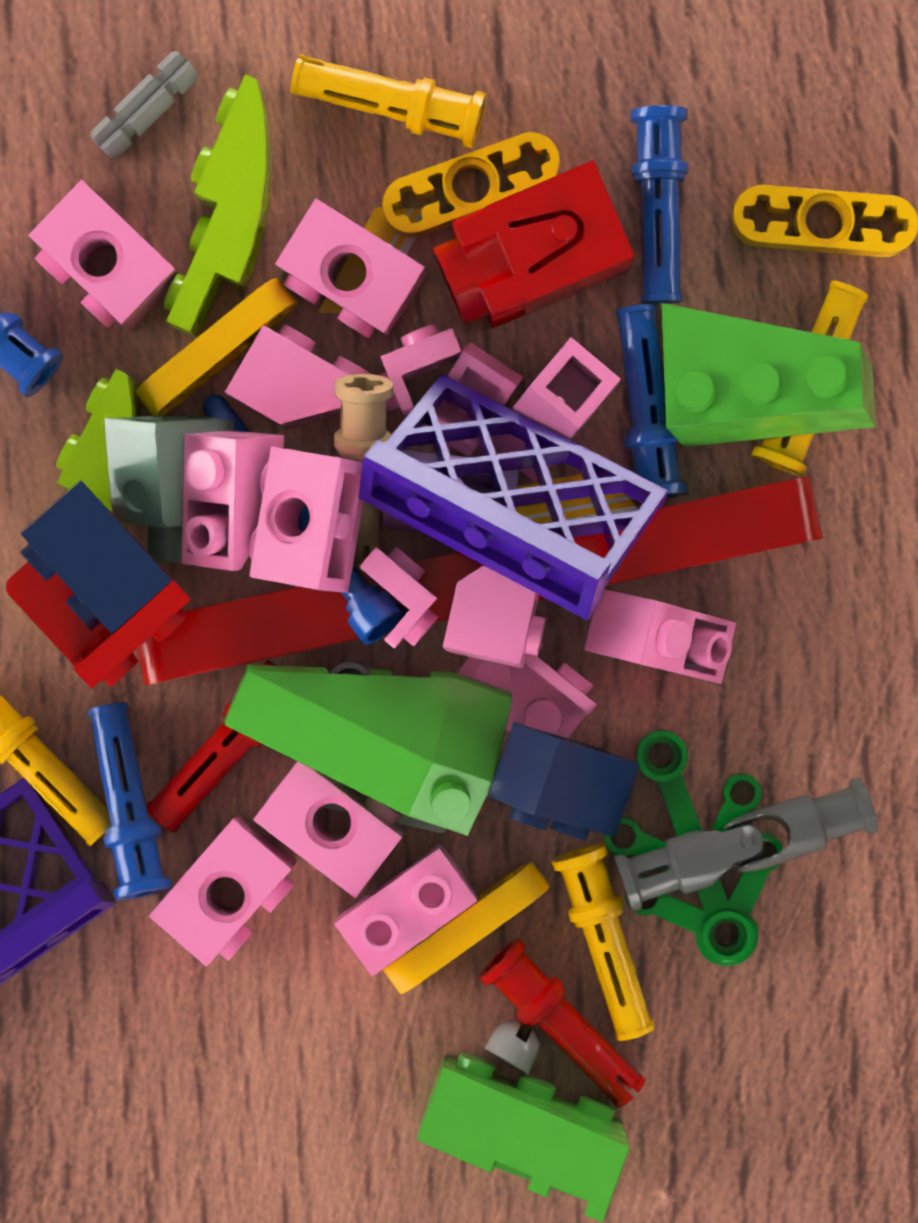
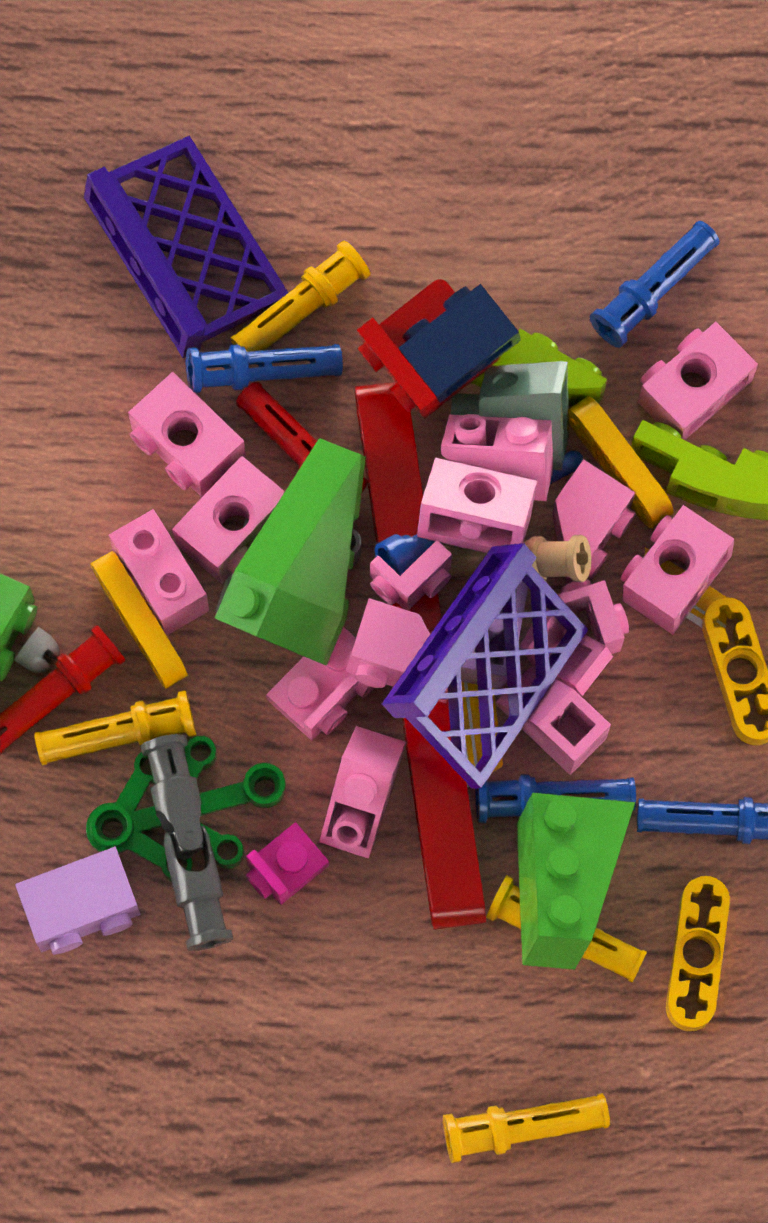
camera: 90 degrees right, 15 degrees down
(534, 248) = (685, 709): red piece -> none
(562, 782) = (250, 697): dark blue brick -> none
(755, 722) = (285, 864): none -> dark pink bracket
(823, 967) = (78, 901): none -> lavender brick

